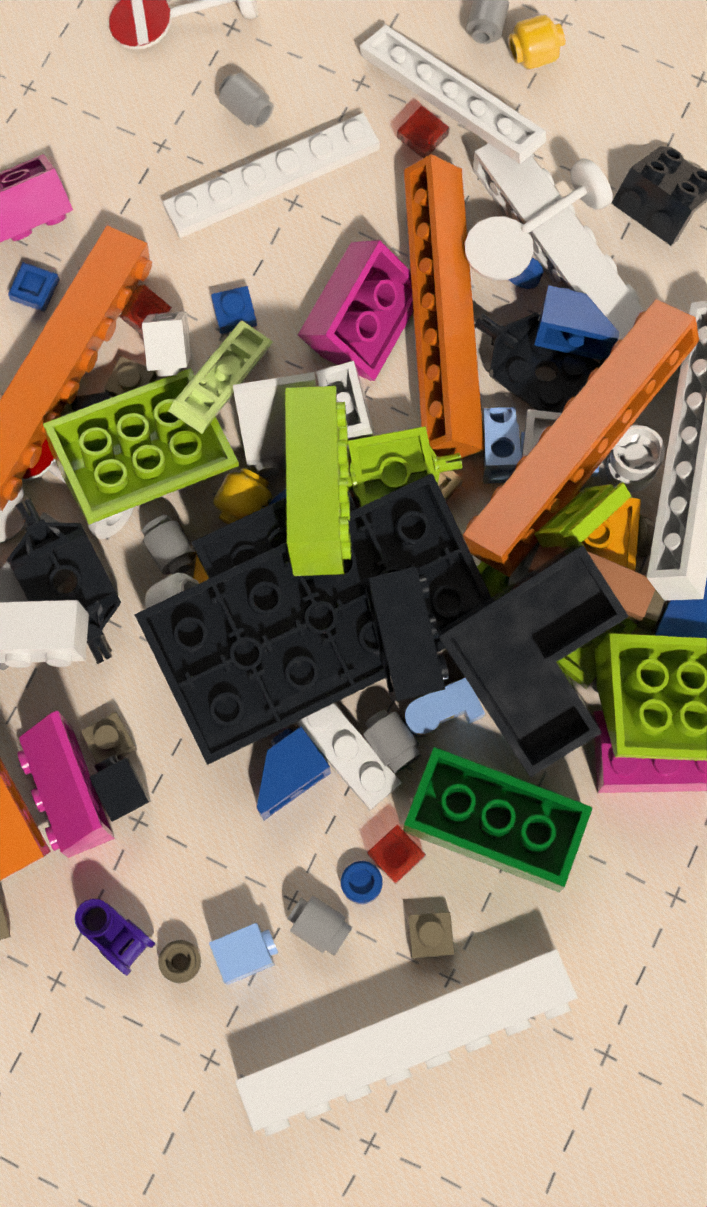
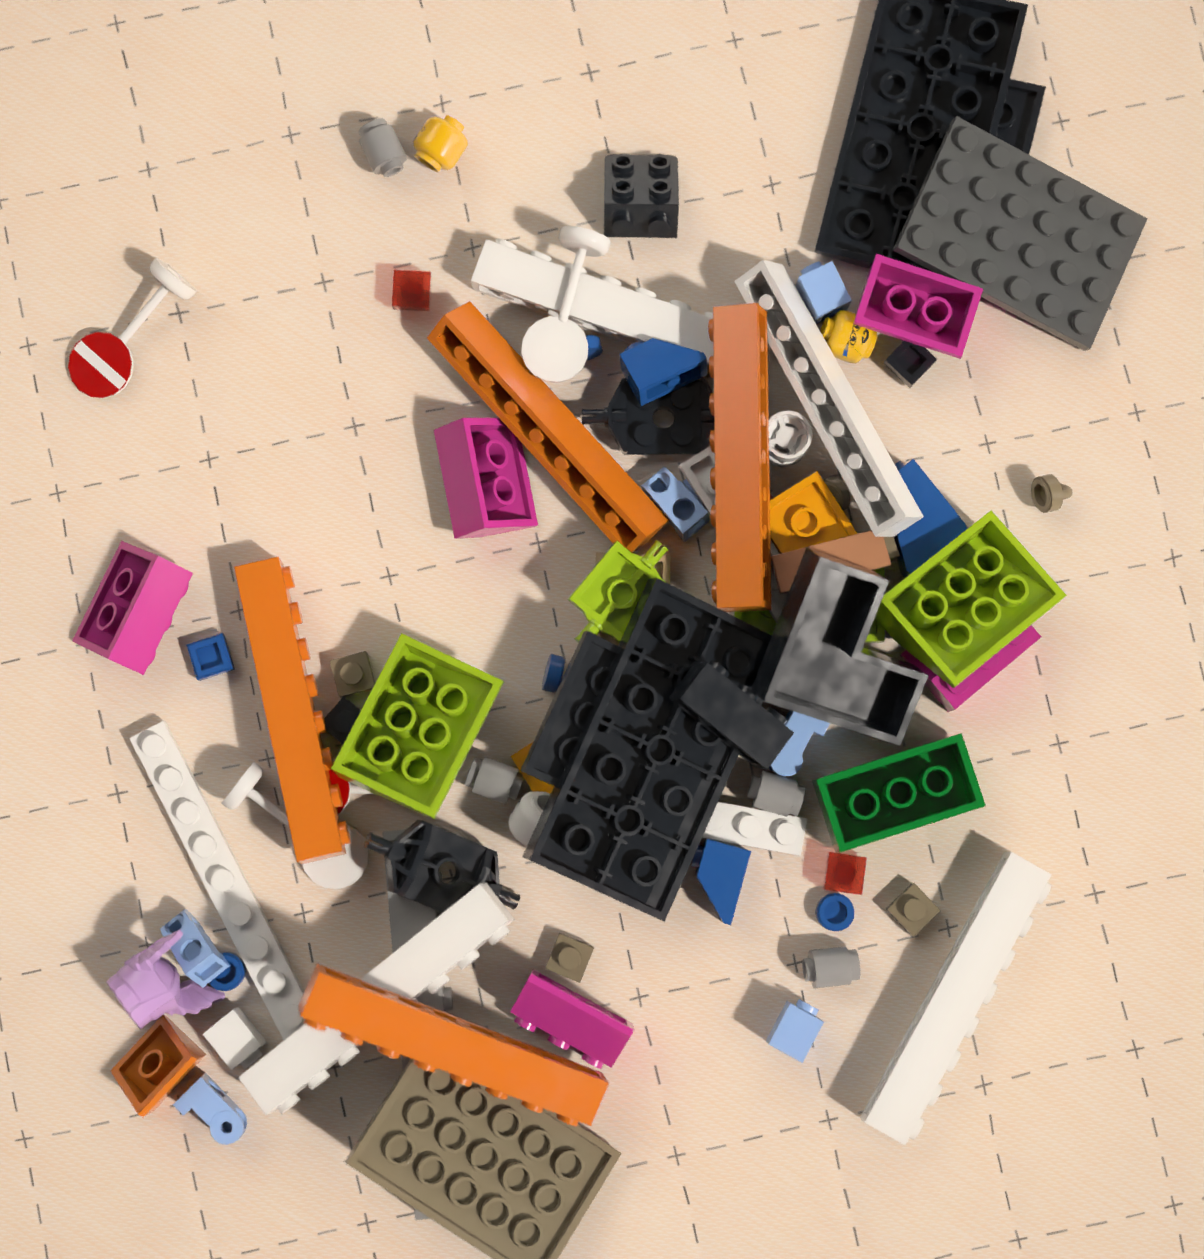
camera: 45 degrees left, 10 degrees up
(114, 936) = (694, 1092): dark purple piece -> none
(118, 787) = (610, 987): black brick -> none
(140, 305) = (319, 610): clear red plate -> none
(166, 342) = (363, 625): white brick -> none
(166, 961) = (764, 1077): dark tan plate -> none
(215, 380) = (429, 621): yellowish green plate -> none
(232, 307) = (383, 553): blue plate -> none
(241, 495) = (519, 700): yellow head -> none
(245, 100) = (248, 372): light grey brick -> none
(264, 420) = (509, 626): white slope -> none
(271, 175) = (320, 418): white plate -> none
(317, 481) = (583, 656): lime brick -> none
(351, 391) = (541, 569): white brick -> none
(453, 94) = (413, 244): white plate -> none
(582, 515) = (792, 524): lime plate -> none

